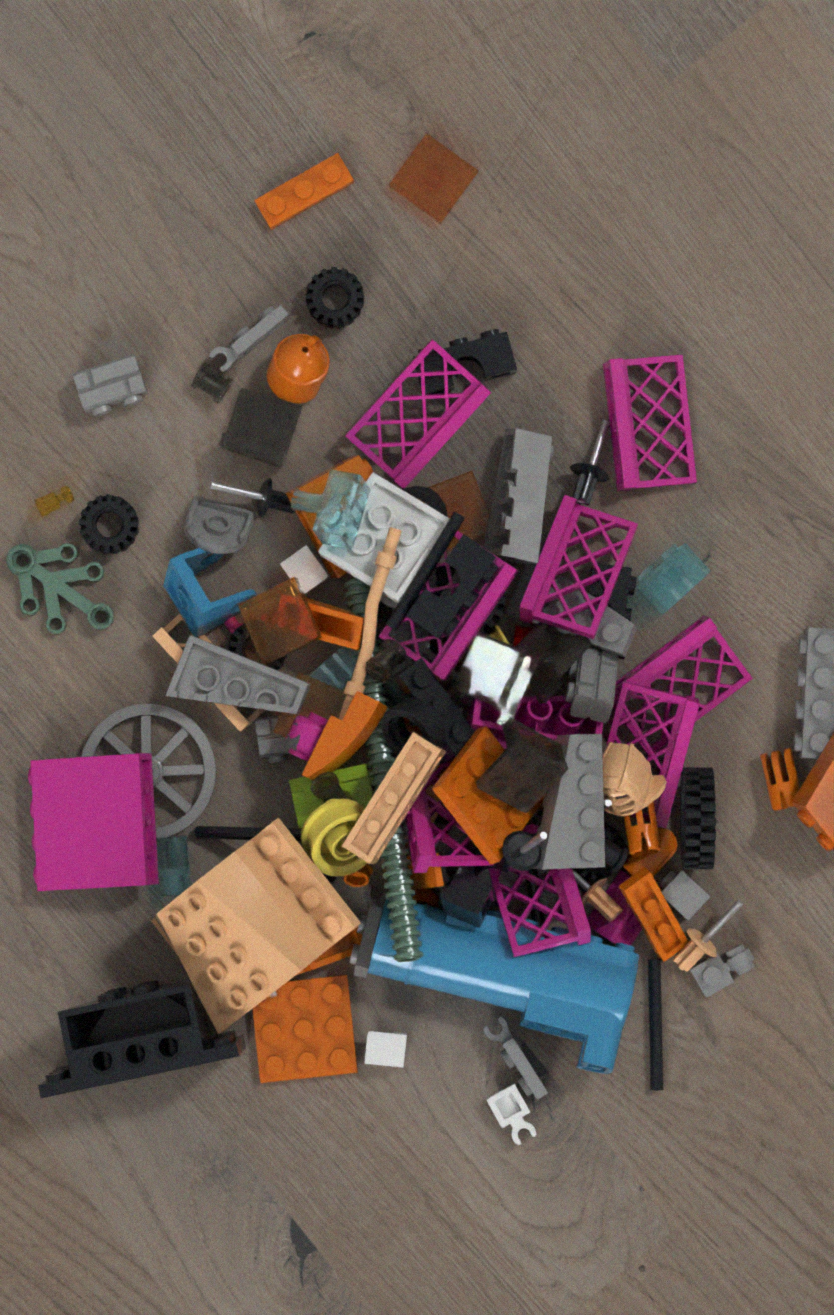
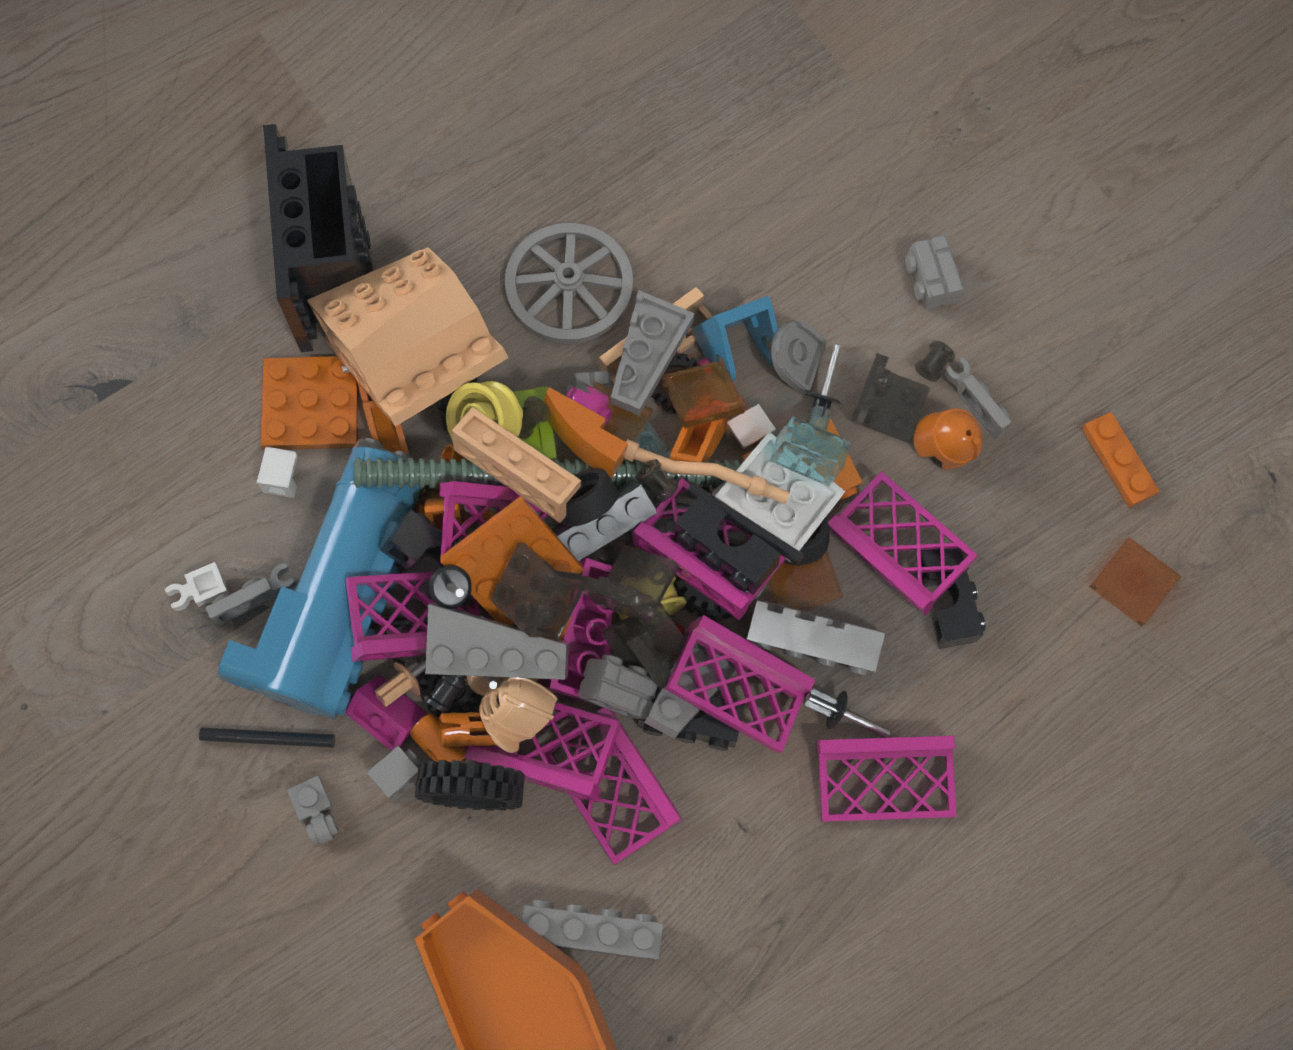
camera: 90 degrees right, 15 degrees down
(52, 501) = (826, 220): clear yellow piece -> none
(55, 583) = (748, 217): sand green plant -> none
(89, 520) = (806, 248): black tyre -> none
(93, 822) = (524, 226): dark pink panel -> none
(173, 865) = (470, 287): clear light blue arm -> none
(235, 833) = (504, 340): black piece -> none
(330, 278) = (1029, 466): black tyre -> none
(654, 914) = (377, 737): orange plate -> none
(672, 578) = (723, 786): clear light blue brick -> none
(701, 943) = (343, 787): light nougat piece -> none
(784, 790) = (507, 885): orange arm -> none

